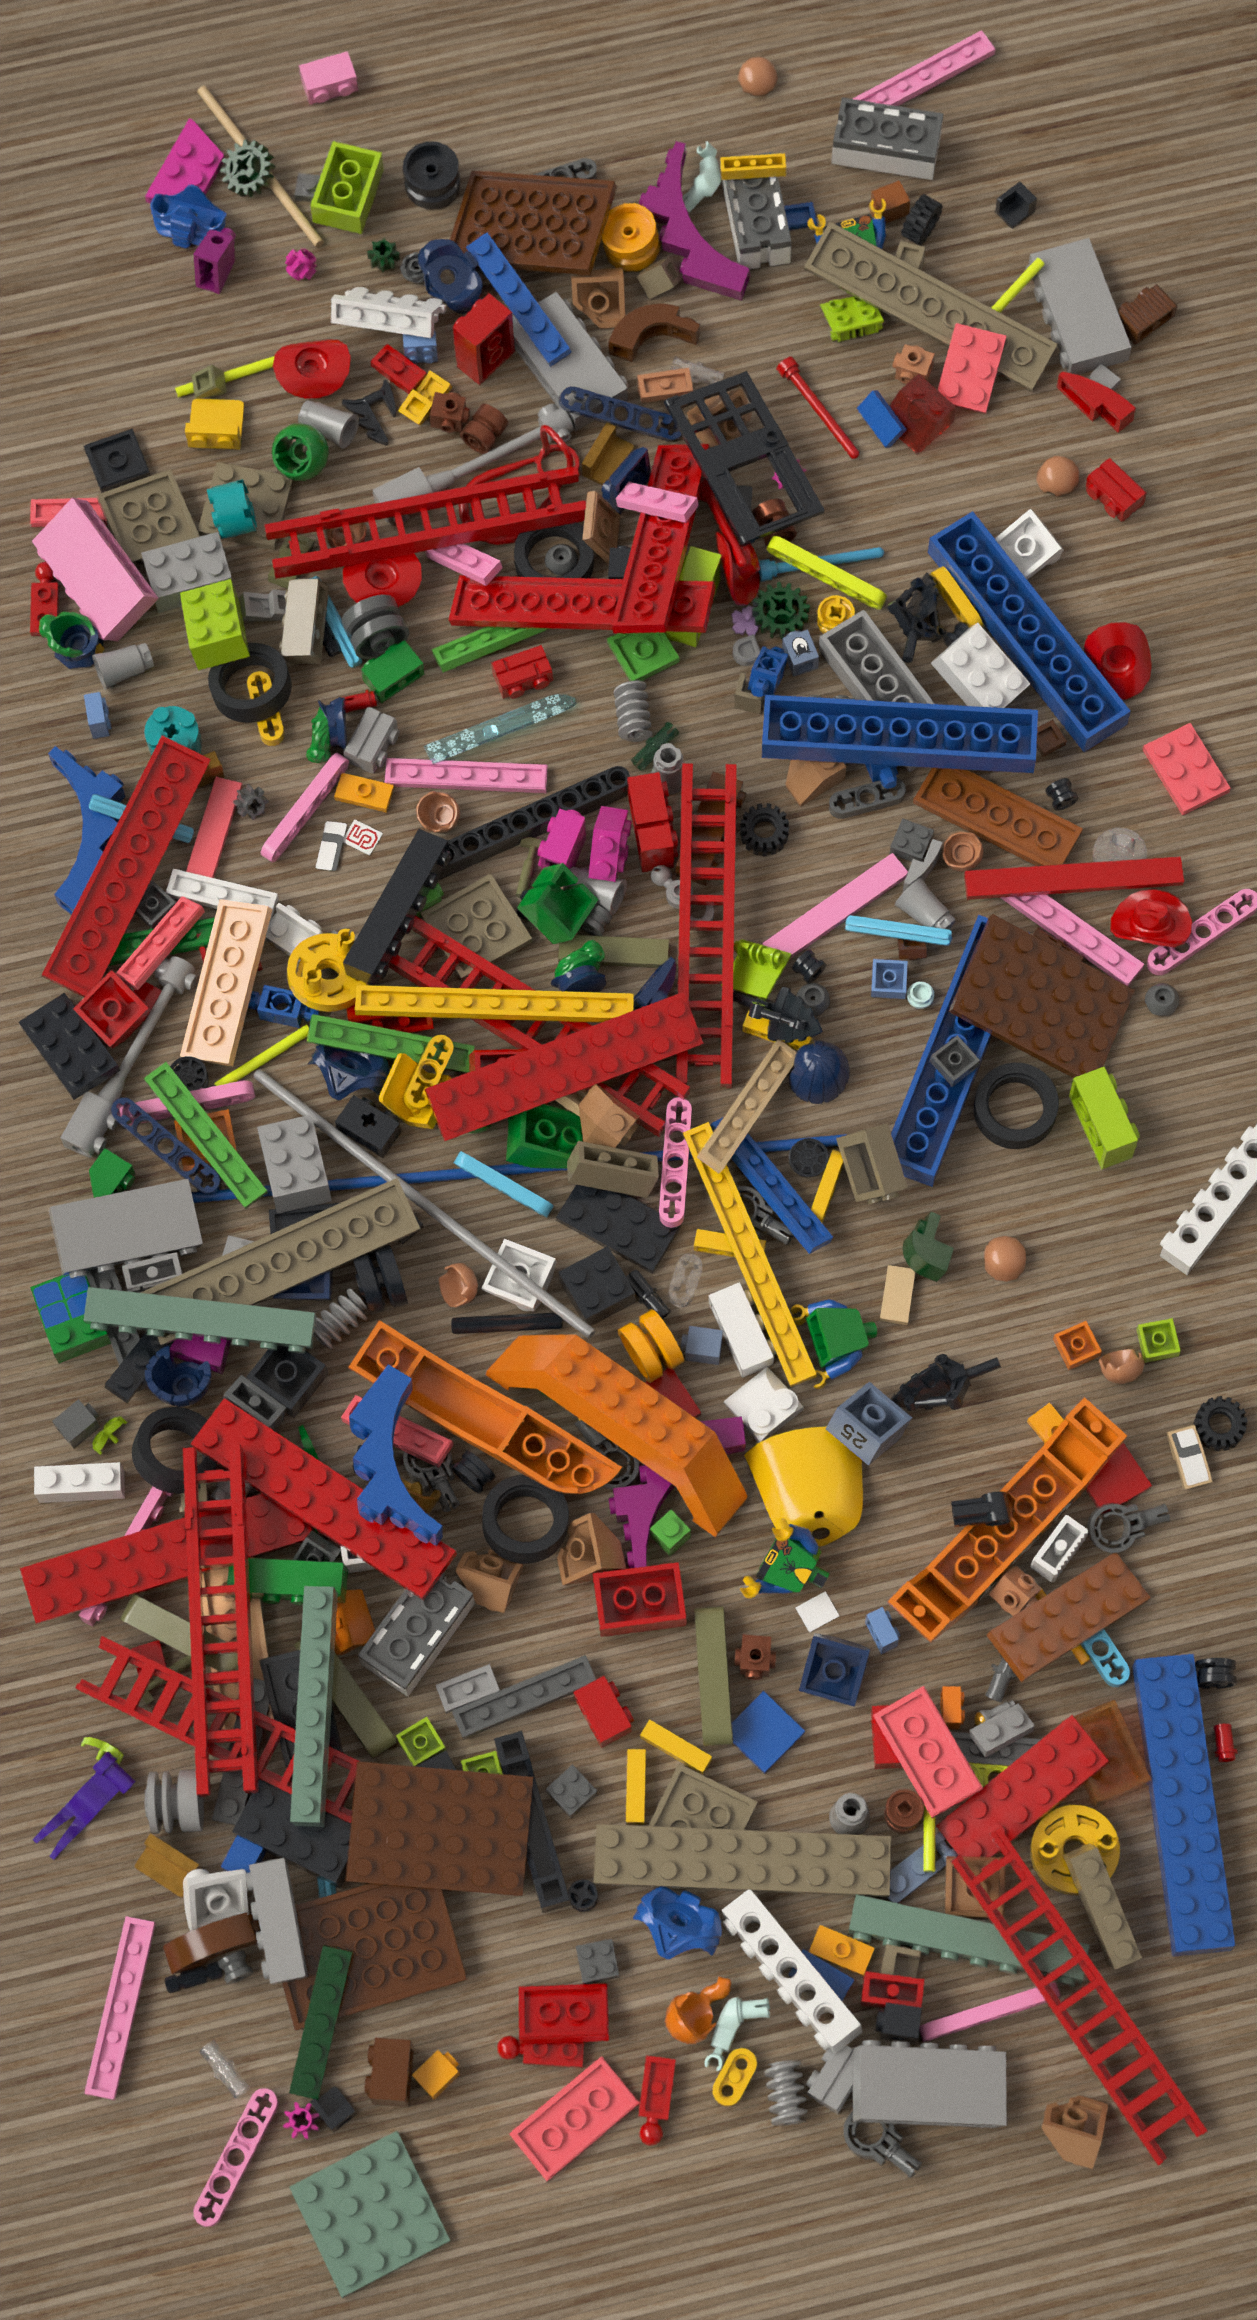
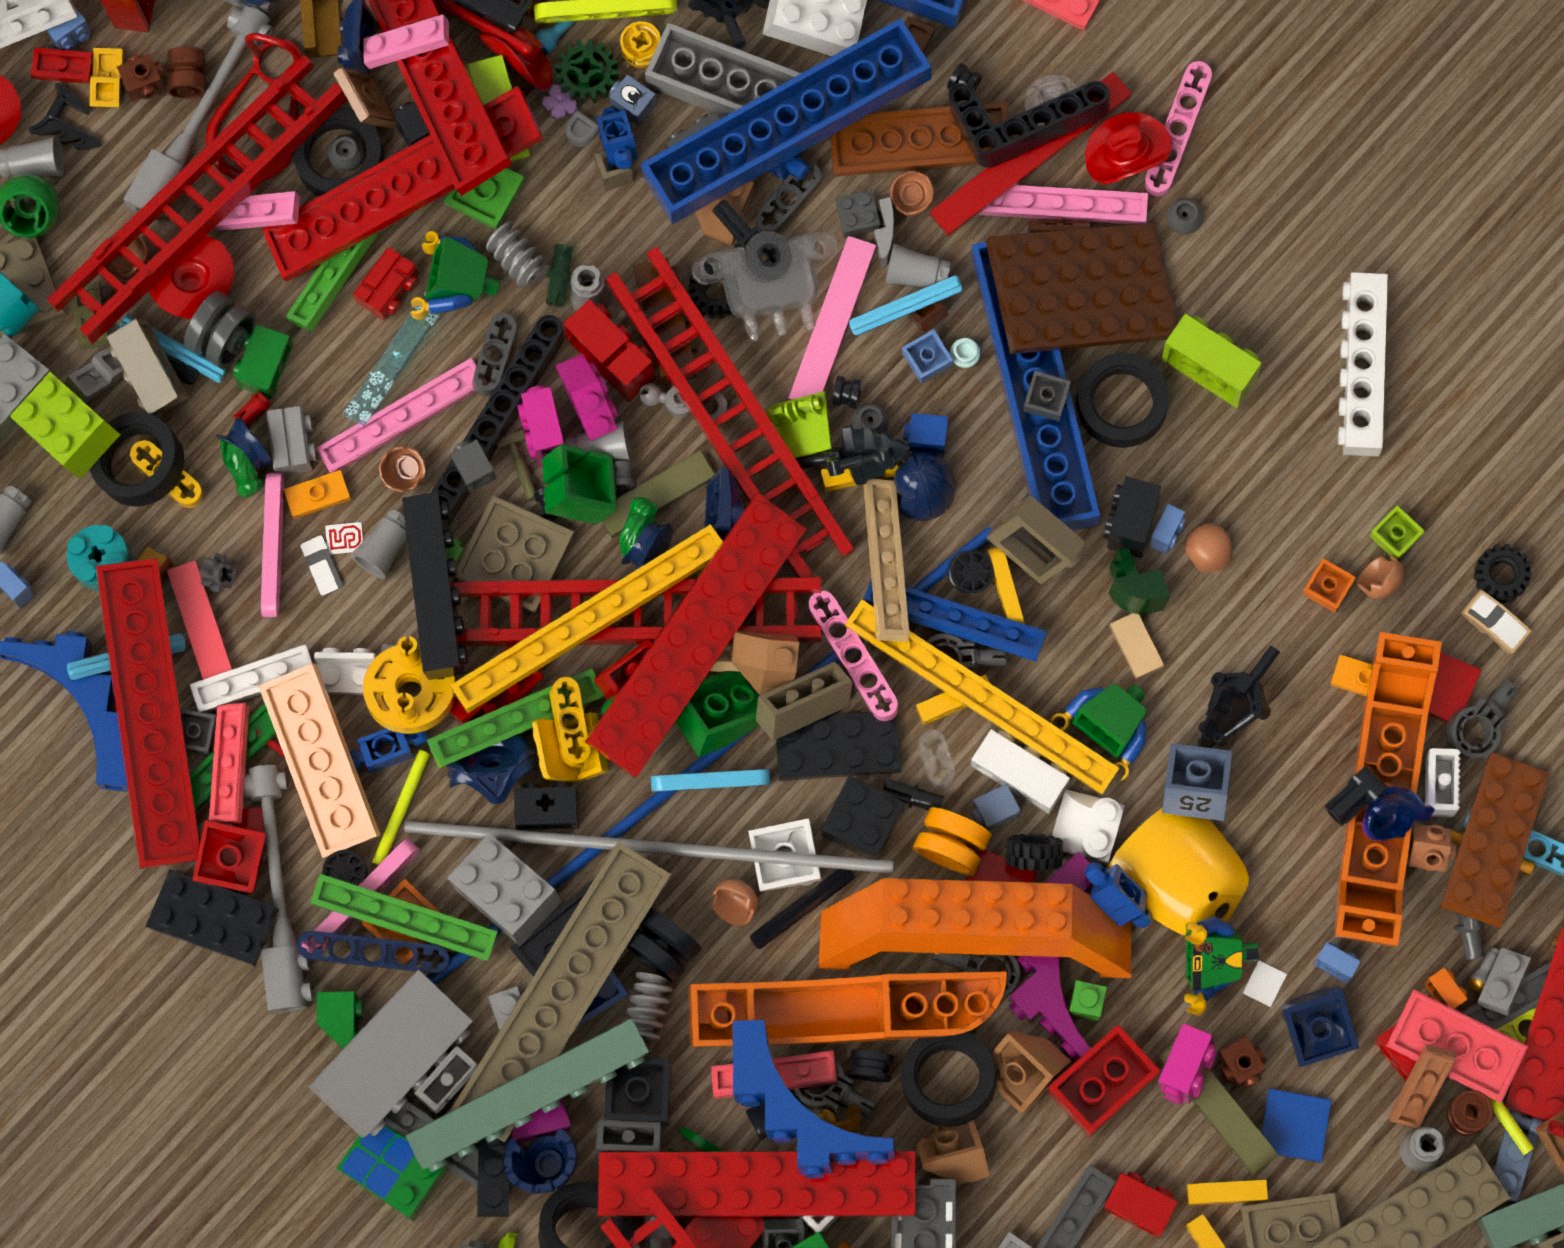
camera: 30 degrees left, 5 degrees up
(381, 858) = (382, 545): none -> light grey plant
(488, 839) = (472, 465): none -> dark grey brick
(569, 762) = (492, 342): none -> dark grey beam
(575, 697) = (455, 276): none -> green torso
(707, 1394) = (1034, 852): none -> black tyre
(707, 1625) = (1185, 1066): none -> dark pink brick
(747, 1467) = (1118, 895): none -> blue piece
(802, 850) = (769, 287): none -> clear piece
(848, 1034) = (926, 433): none -> blue brick
(880, 1764) = (1422, 1086): none -> nougat tile
(960, 1194) = (1135, 509): none -> black brick
(981, 1222) = (1169, 525): none -> medium blue piece
(999, 1542) = (1394, 814): none -> clear blue hair
(1084, 851) = (1024, 123): none -> black beam

